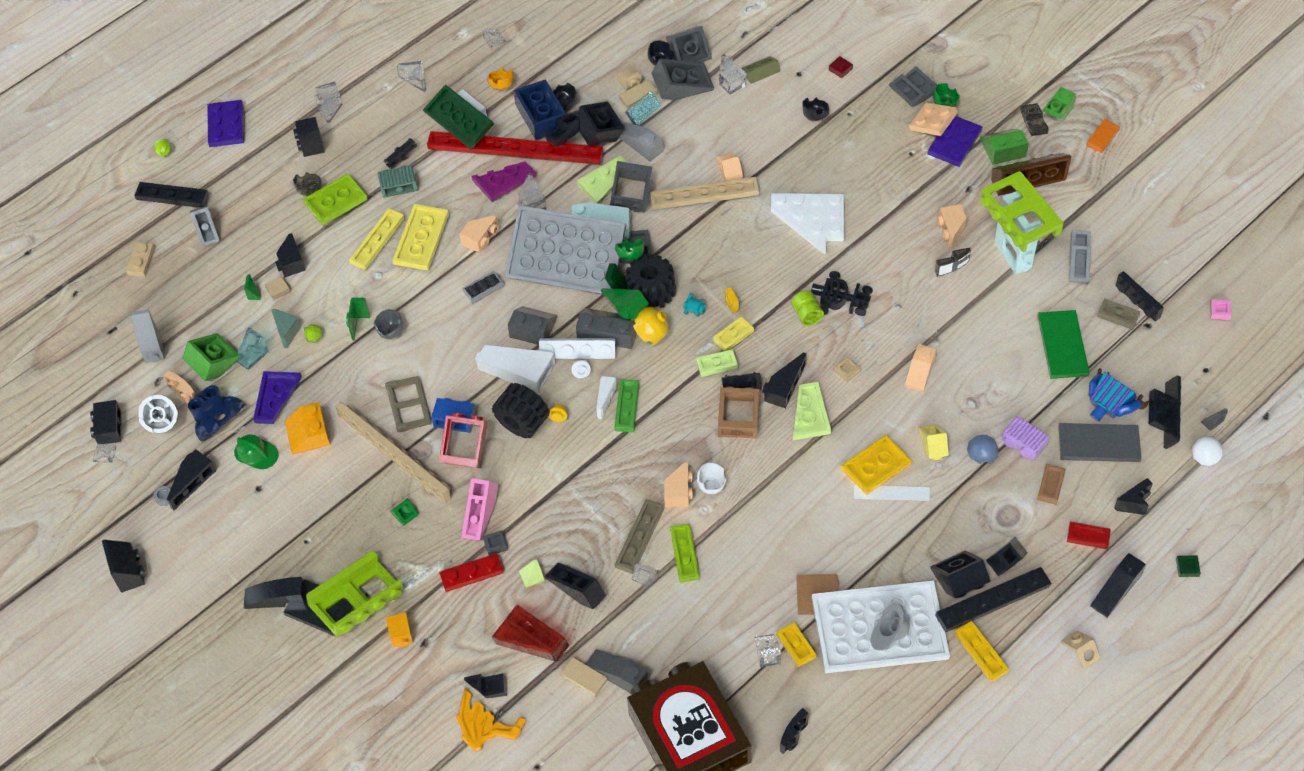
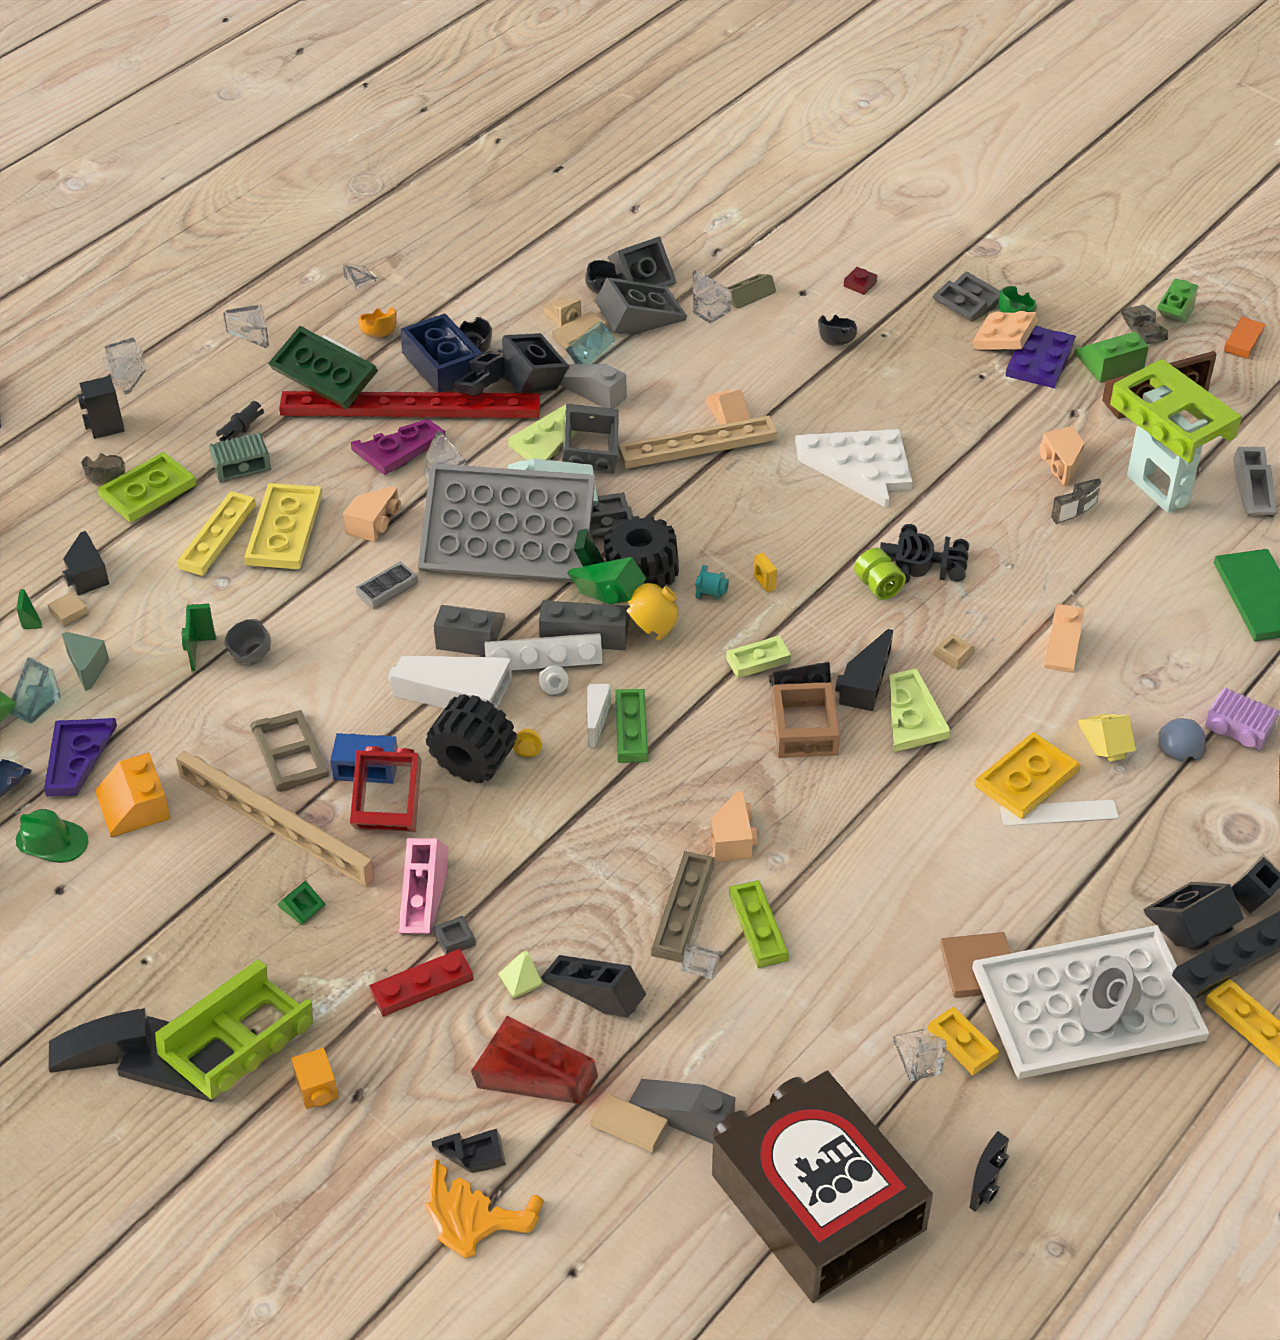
camera: 10 degrees left, 10 degrees down
(312, 333) = (129, 663): lime plate -> none
(630, 251) = (607, 513): green hair -> none
(711, 478) = (781, 812): white hair -> none
(733, 334) = (776, 616): light yellow plate -> none

